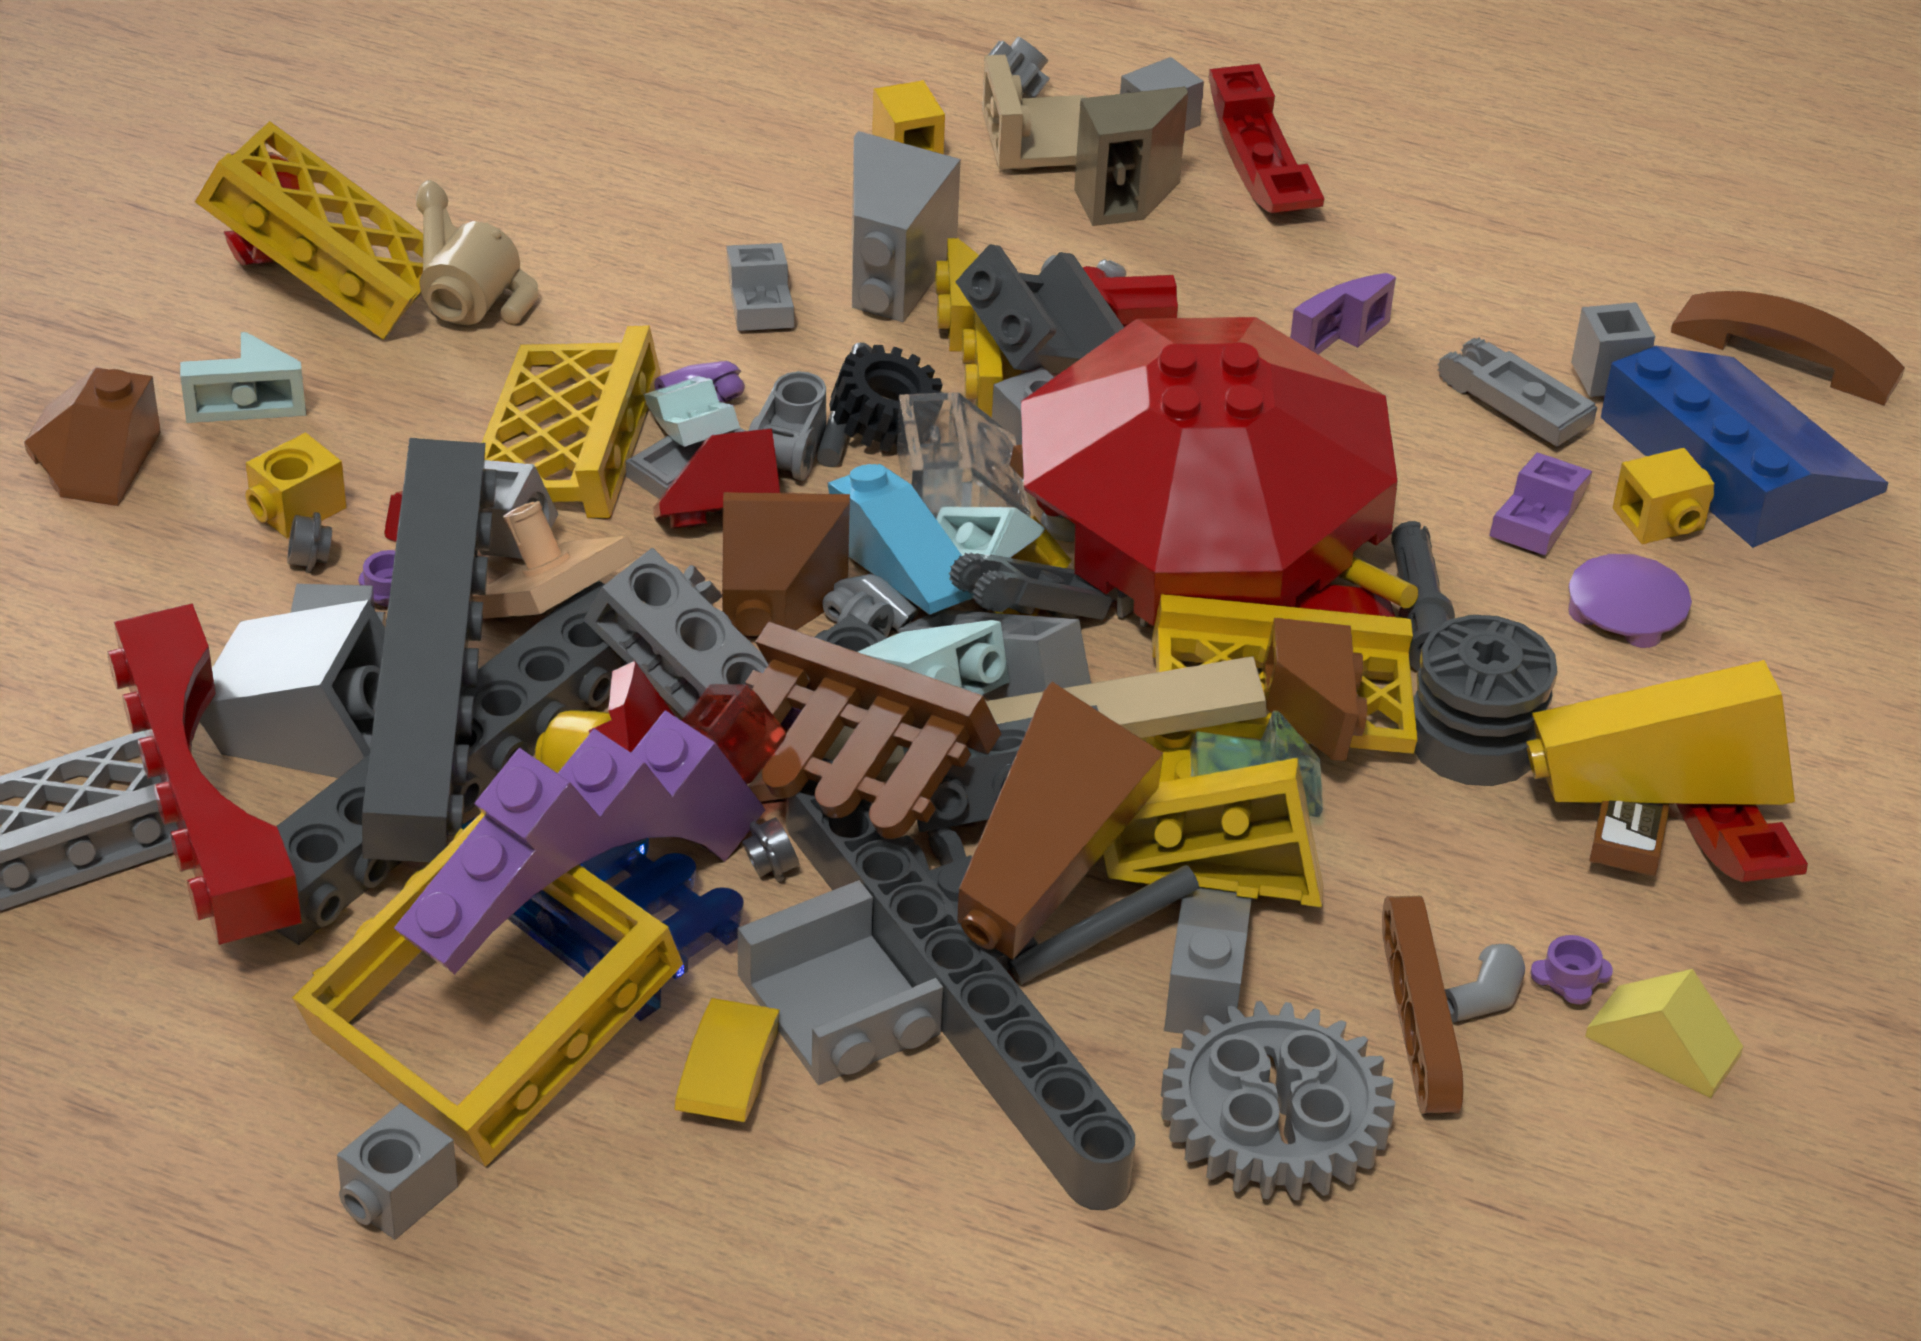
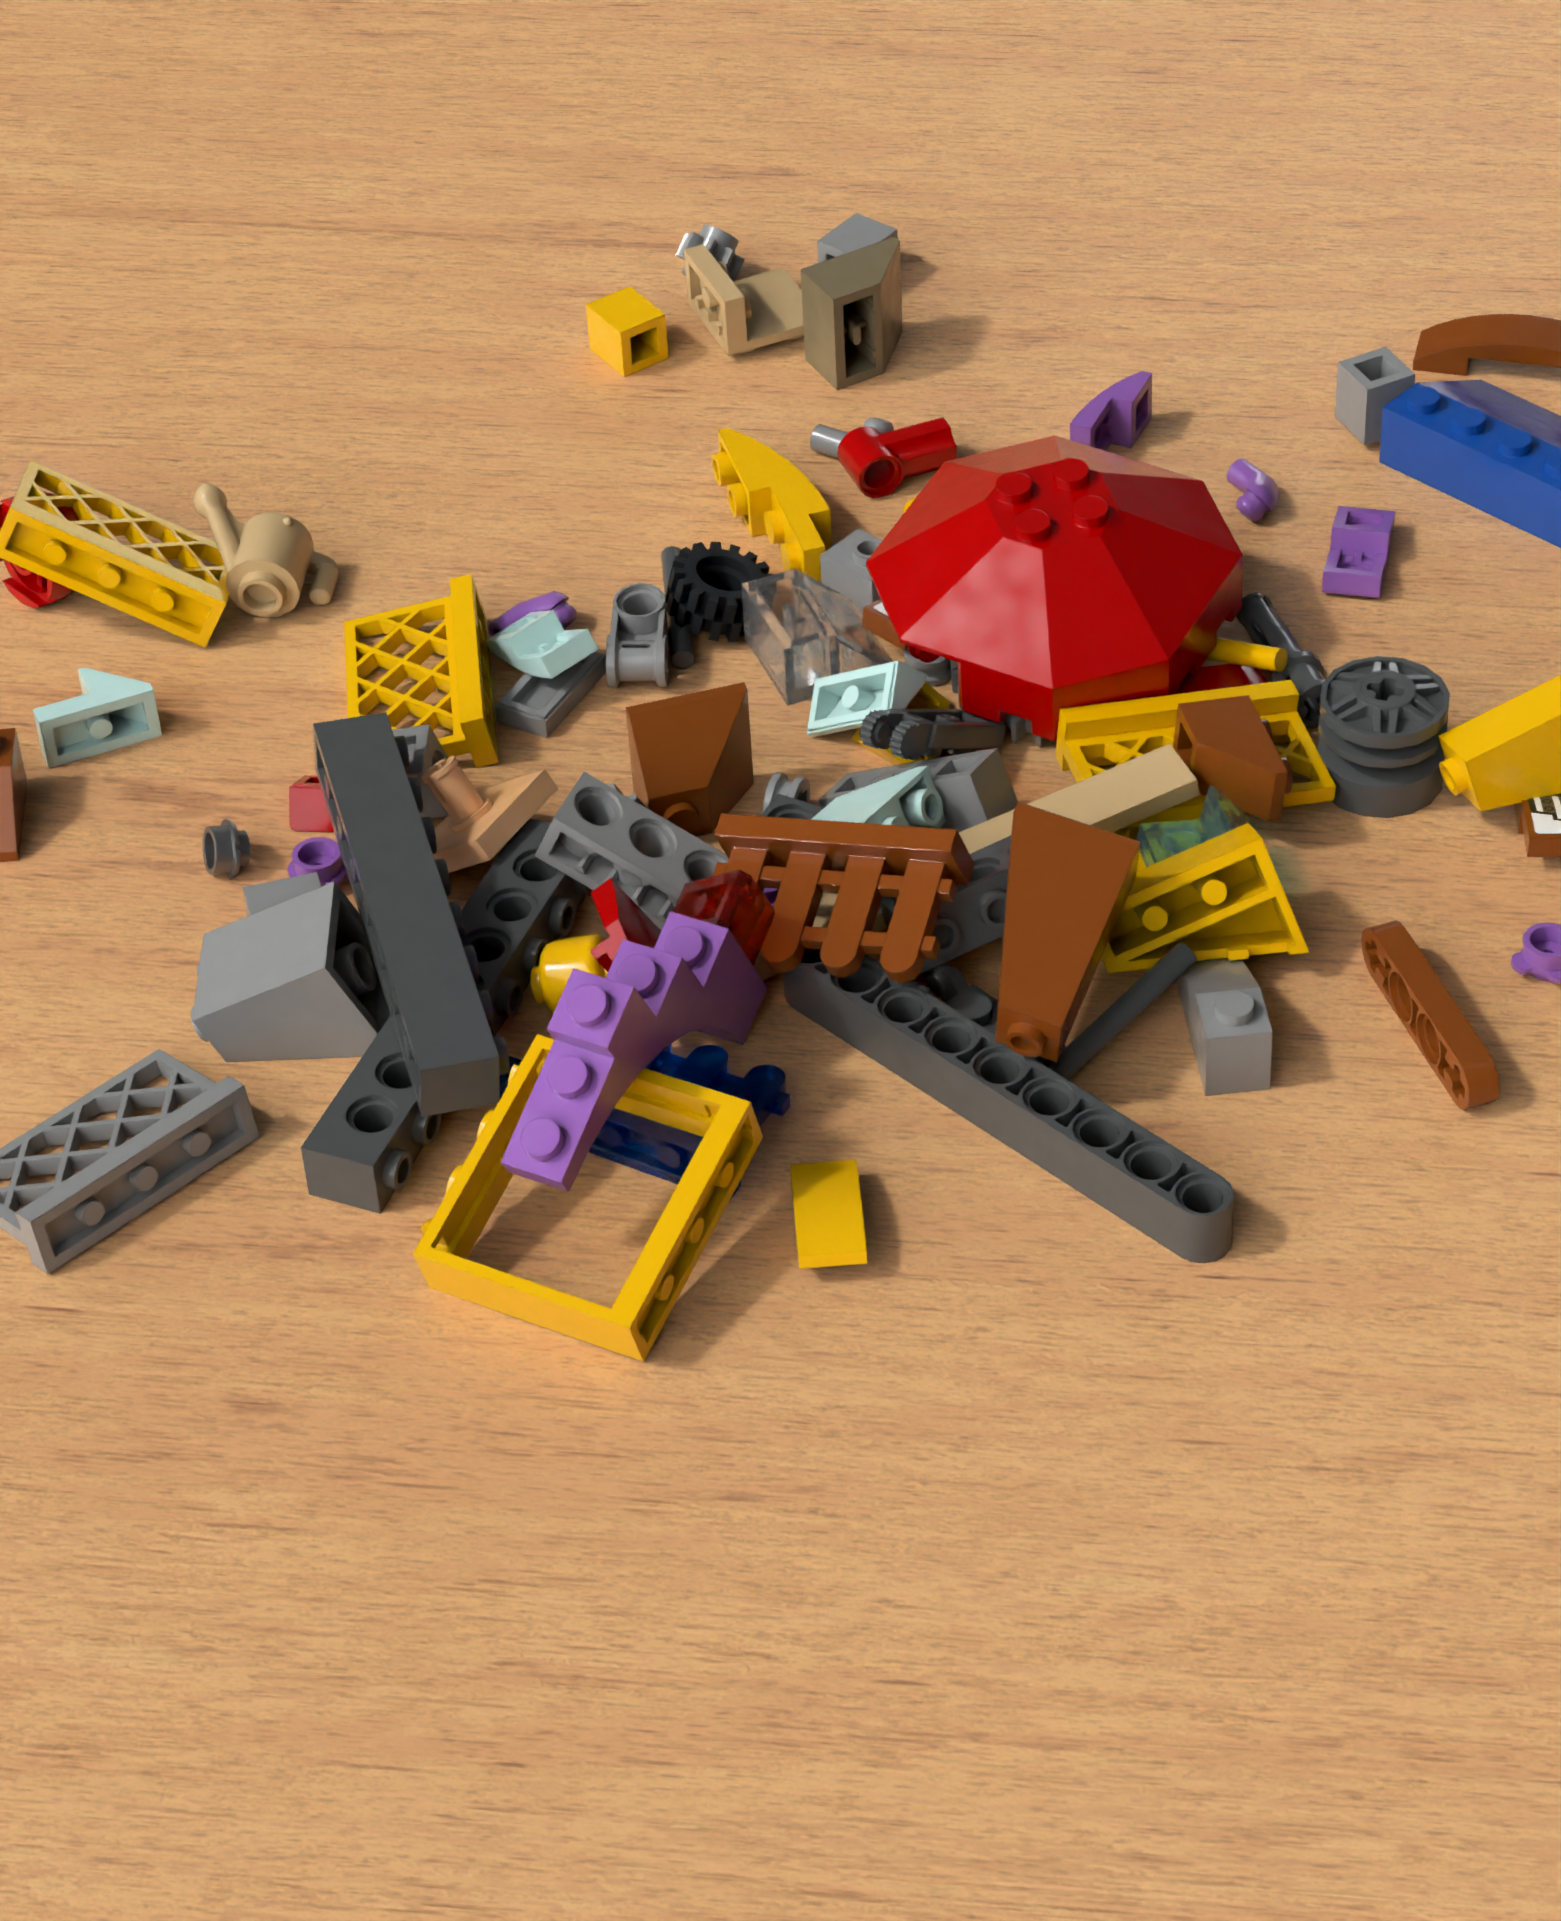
camera: 10 degrees left, 0 degrees up
(236, 858) = (312, 1143): red arch -> none
(295, 481) = (190, 796): yellow brick -> none
(396, 1171) = (572, 1382): light grey brick -> none
(721, 464) = (596, 699): red slope -> none
(760, 286) = (548, 516): light grey slope -> none
(770, 849) = (786, 1022): flat silver plate -> none
(835, 984) = (902, 1134): light grey panel -> none
(877, 588) = (757, 776): light grey arm -> none
(899, 537) = (796, 716): medium azure slope -> none
(900, 222) = (662, 425): light grey slope -> none
(1038, 317) = (844, 480): dark grey panel -> none
(1230, 1111) = (1336, 1127): light grey gear -> none
(1256, 142) = (963, 280): red slope -> none
(1464, 418) = (1258, 488): none -> medium lavender arm
(1495, 986) = (1486, 981): light grey arm -> none
(1518, 390) = (1299, 453): light grey hinge -> none
(1629, 597) = (1470, 617): medium lavender dish -> none
(1663, 495) = (1468, 519): yellow brick -> none

